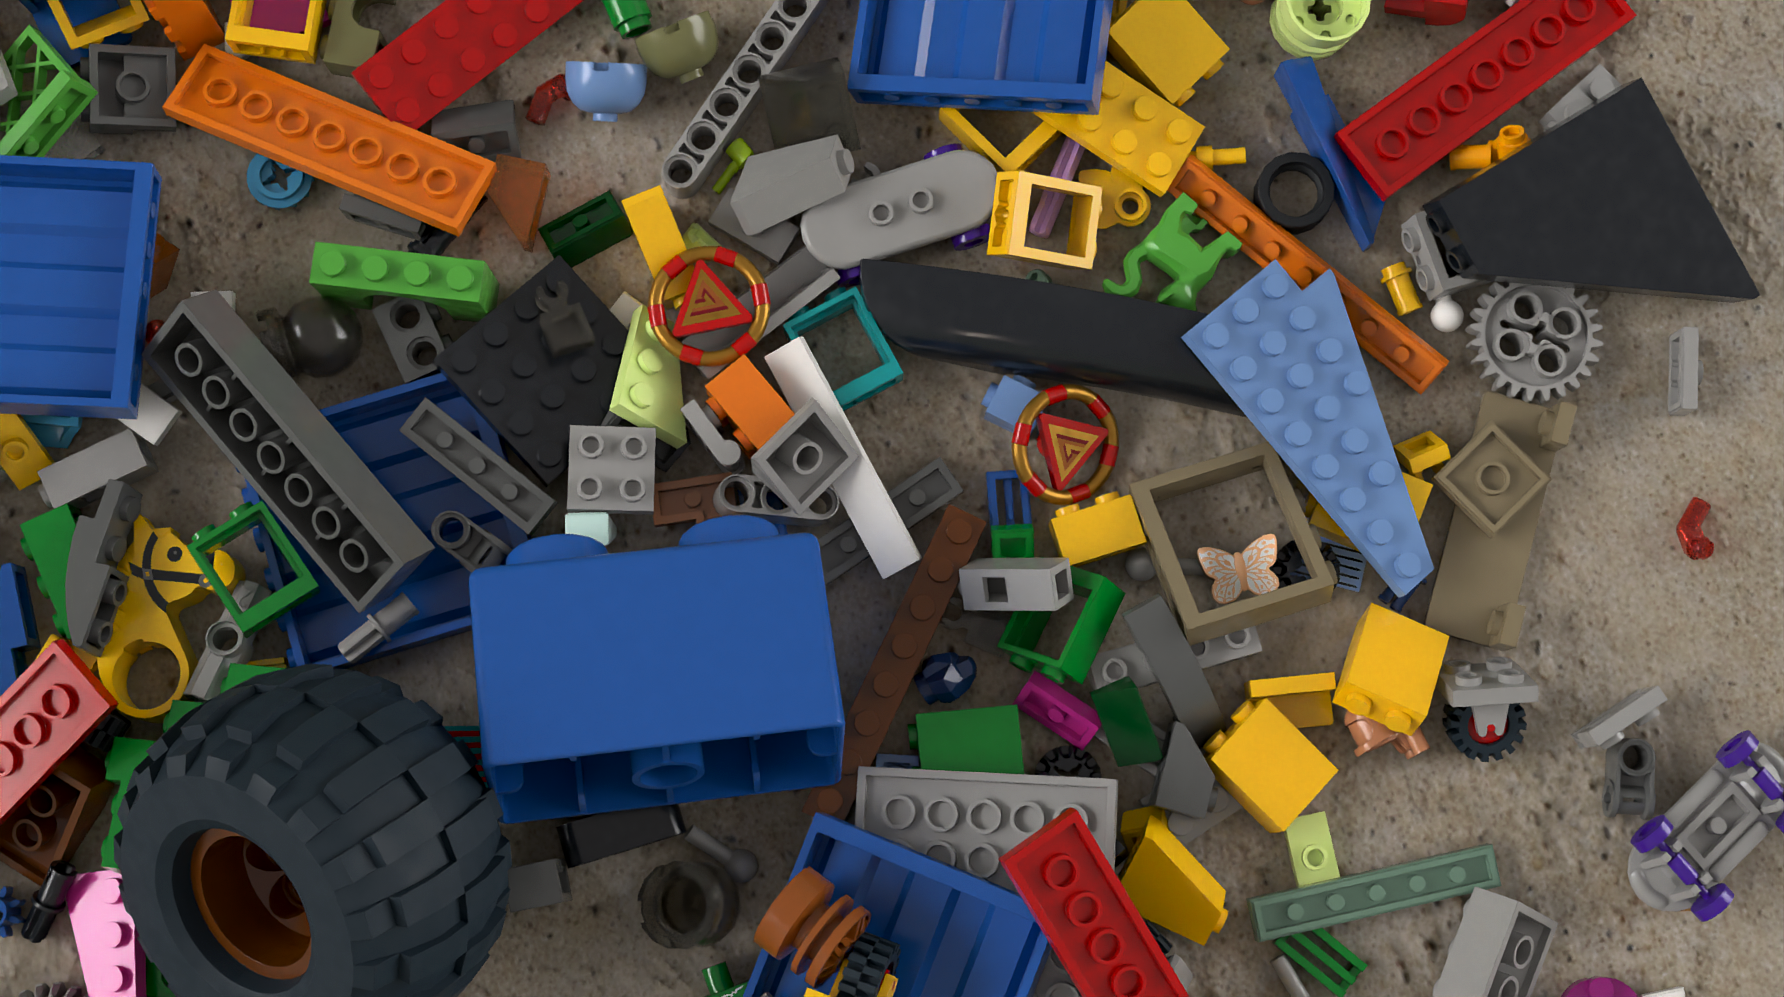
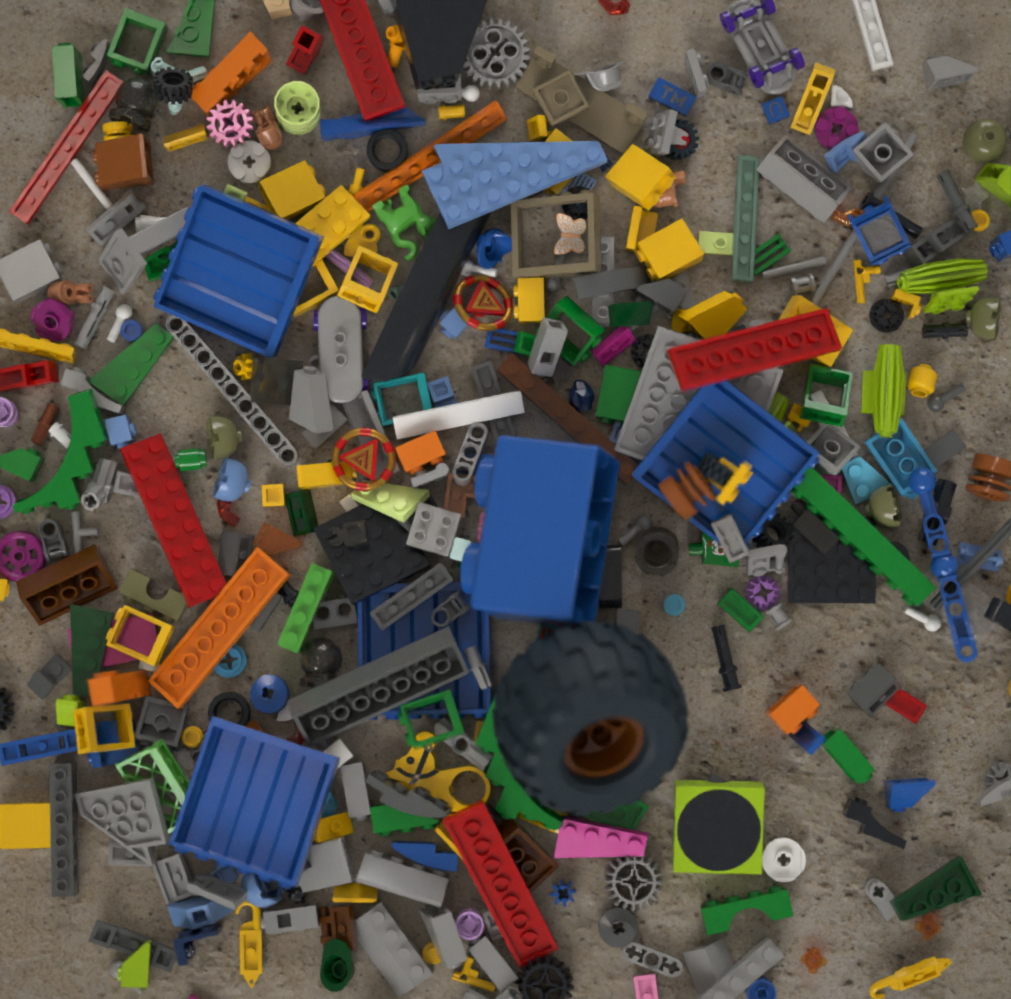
camera: 65 degrees left, 5 degrees up
(48, 900) = (564, 865): black axle -> none
(123, 147) = (192, 736): none -> yellow plate
(213, 214) = (246, 712): none -> black tyre
(230, 247) = (259, 692): none -> blue piece
(601, 967) = (674, 604): none -> medium azure tile
(602, 169) = (273, 495): none -> yellow plate
(697, 236) = (324, 456): yellowish green tile -> none
(738, 152) = (285, 423): lime hand -> none
(803, 457) = (456, 432): light grey slope -> none
(821, 46) = (243, 366): none -> yellow gear
(877, 419) = (441, 392): none -> medium blue slope
(1124, 405) = (470, 268): none -> white bar
(1172, 432) = (492, 247): none -> blue piece
(1554, 550) = (605, 77): none -> light grey piece
(1560, 687) = (672, 96): none -> blue tile
(1598, 891) = (775, 110): none -> blue tile
(1644, 956) = (813, 98): none -> yellow slope

